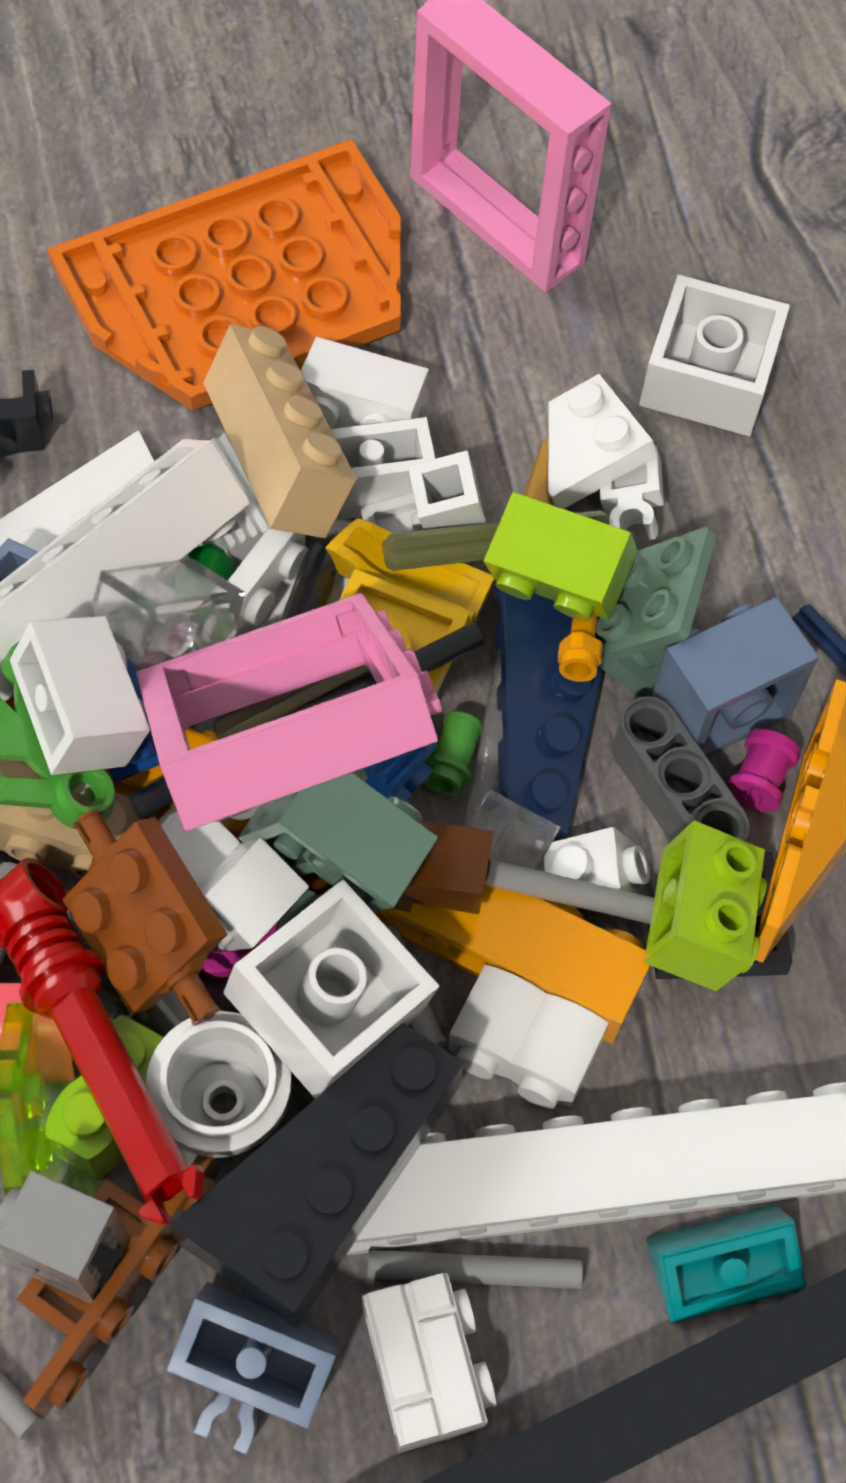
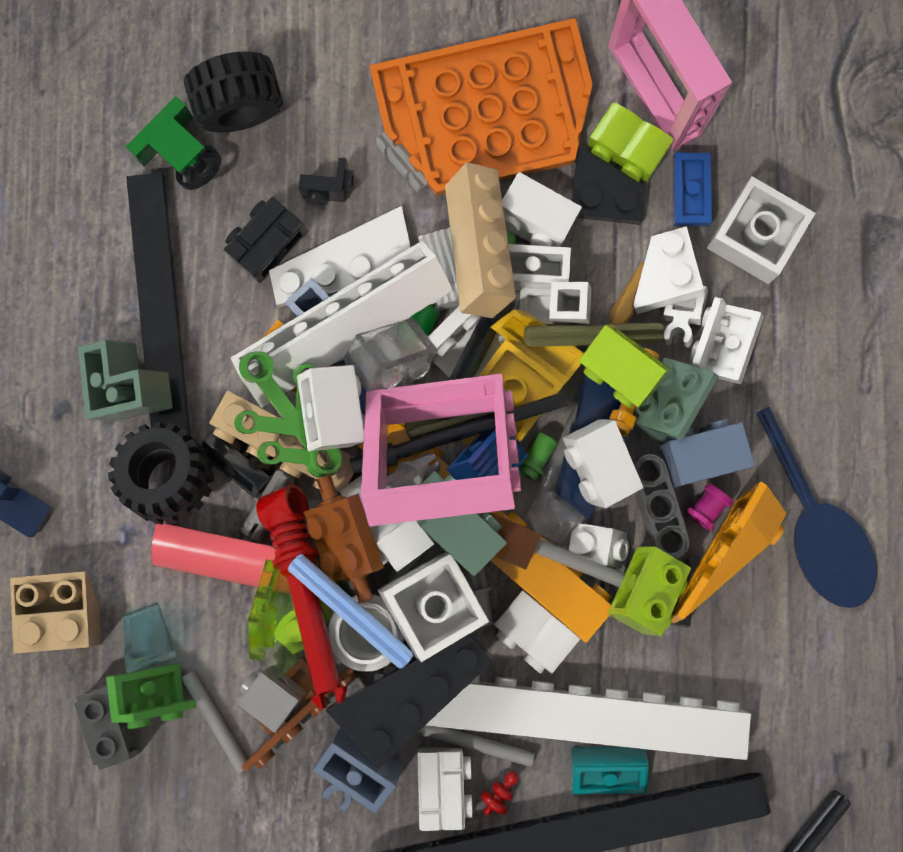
camera: 20 degrees right, 20 degrees up
(121, 370) = (399, 158): none -> light grey axle
(181, 1033) = (350, 611): none -> light blue axle
(462, 357) = (605, 191): none -> black wing
(479, 282) = (629, 142): none -> lime brick
(538, 1346) = (501, 791): none -> red hair
(565, 720) = (602, 463): none -> white brick
(592, 327) = (692, 189): none -> blue plate
(722, 501) = (726, 340): none -> white bracket

